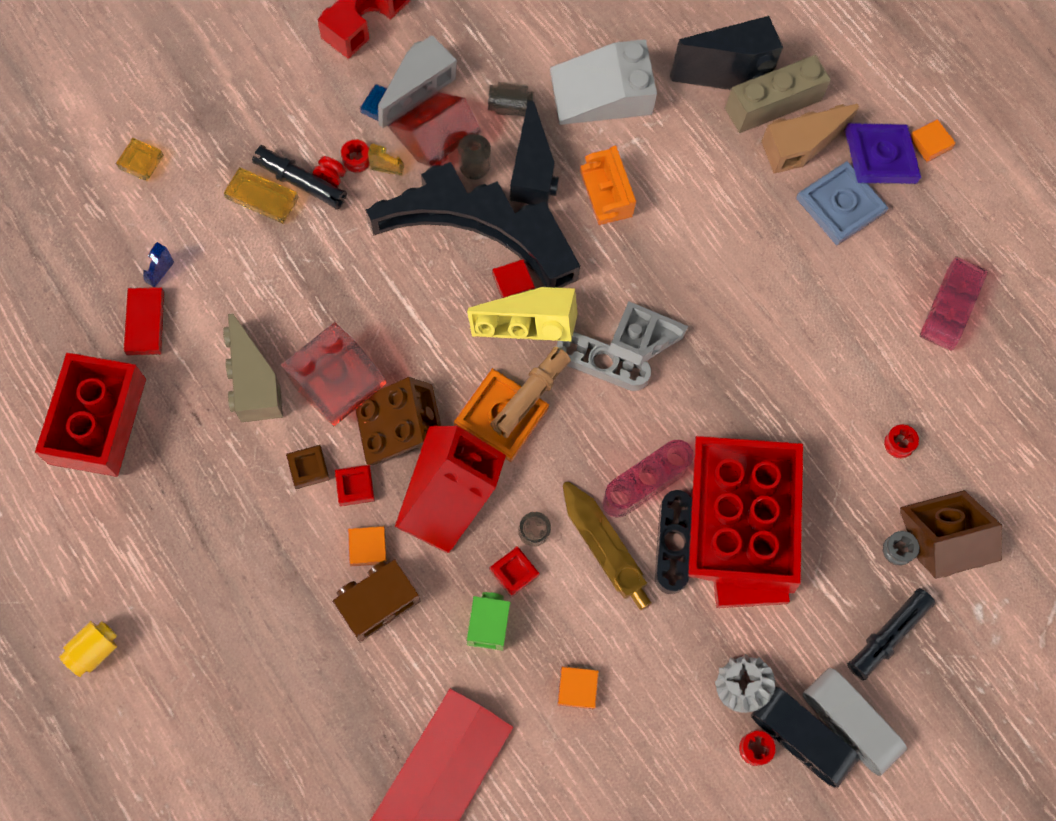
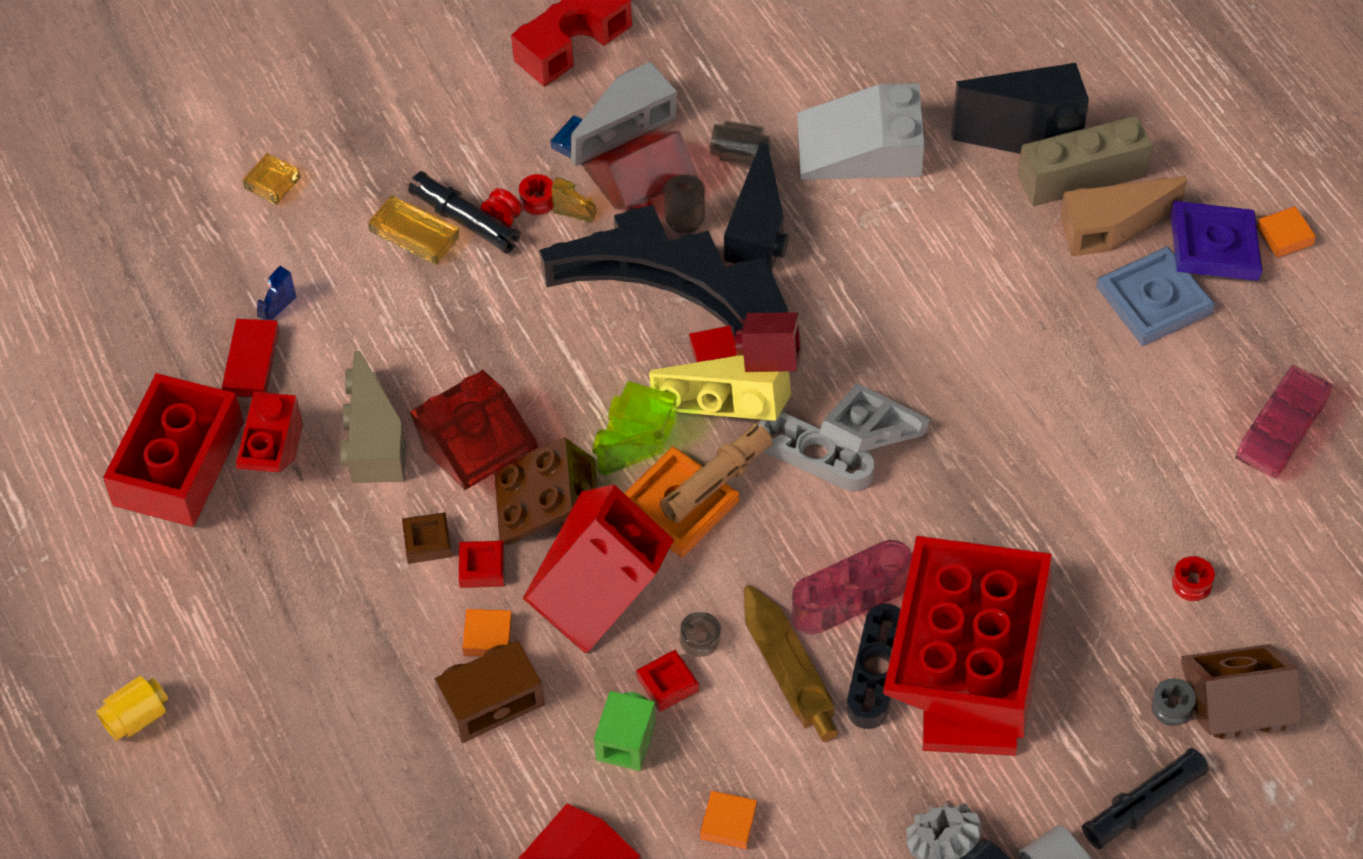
camera: 15 degrees right, 15 degrees down
(169, 394) = (270, 433): none -> red slope
(463, 356) = (636, 429): none -> clear neon green slope
(561, 280) = (770, 342): none -> dark red brick
(608, 186) = (850, 251): orange hinge -> none

